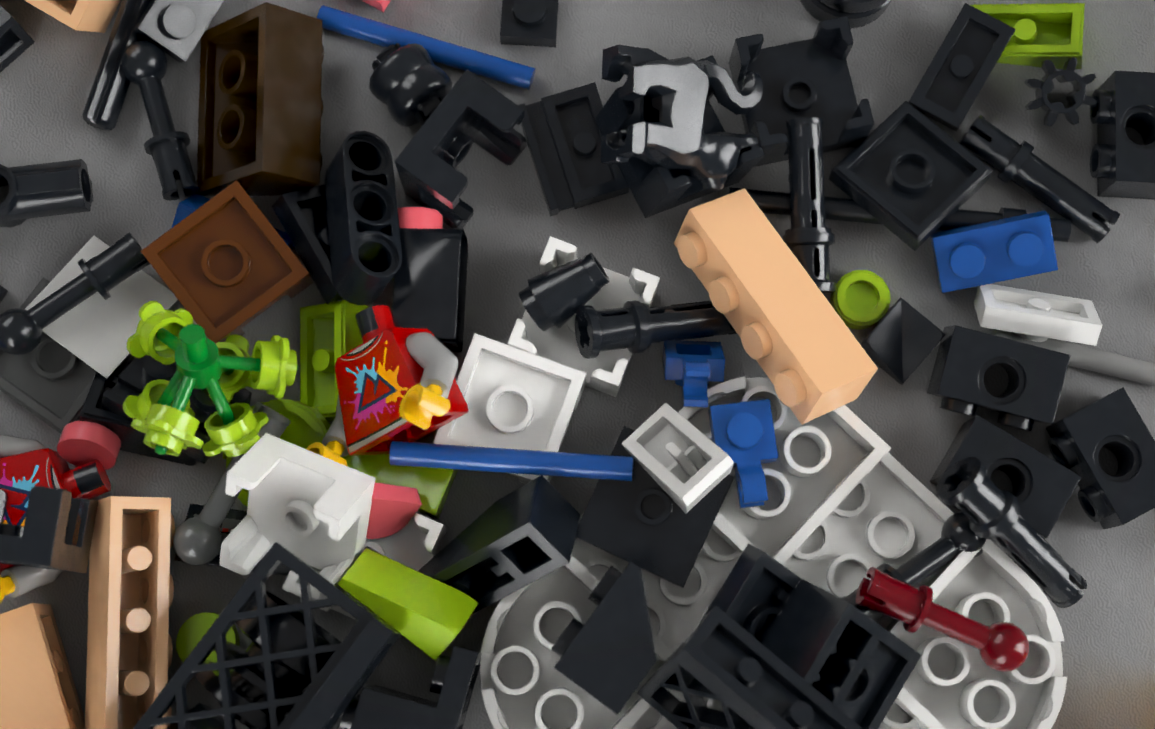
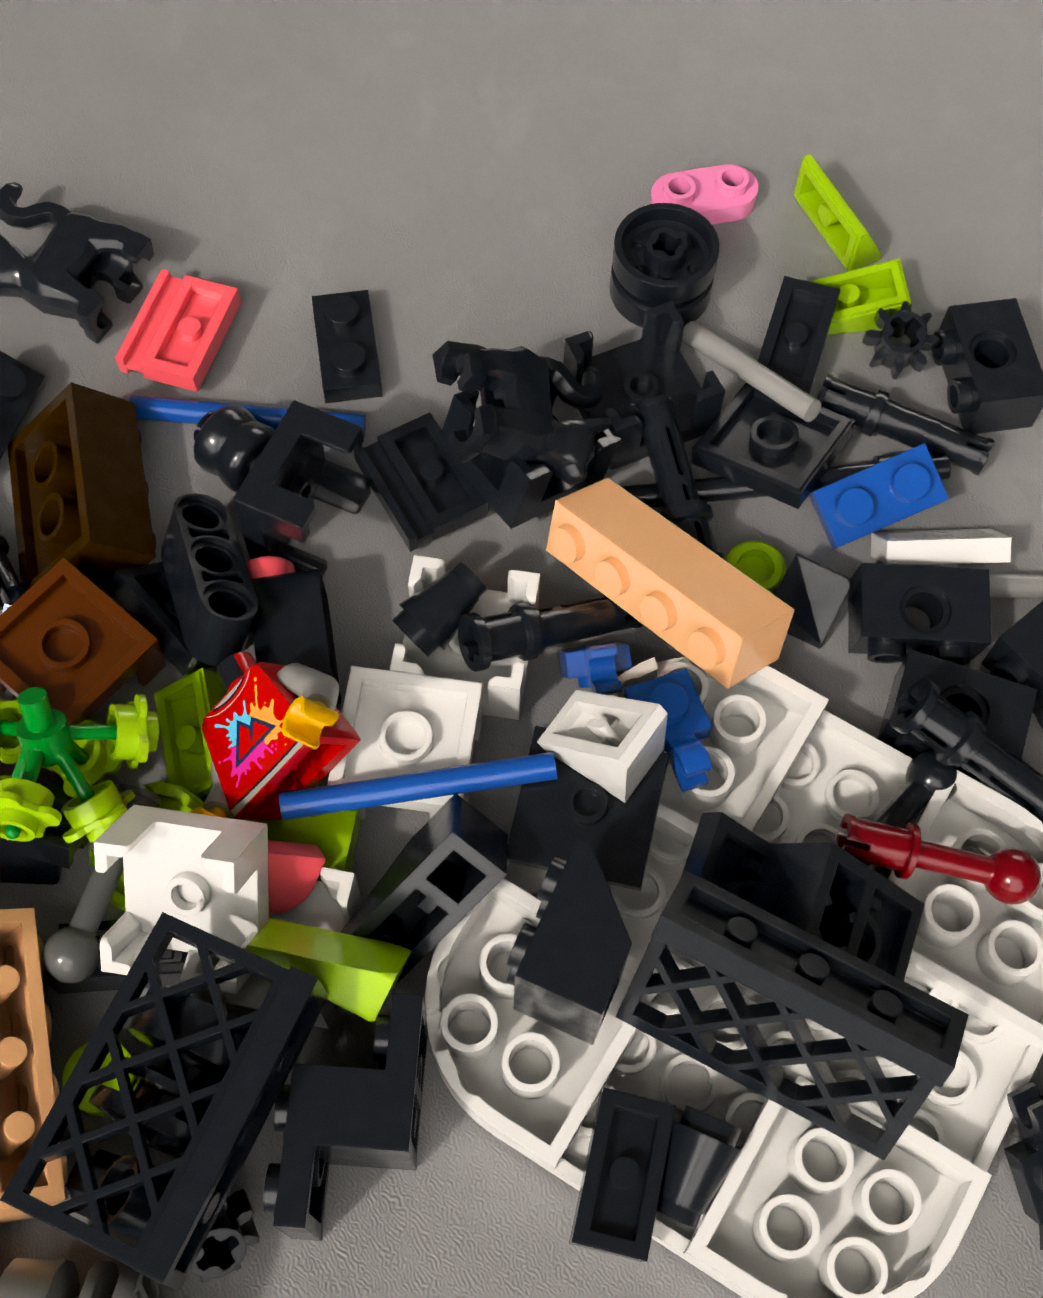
camera: 10 degrees left, 15 degrees down
(907, 97) = (751, 371): none -> light grey bar

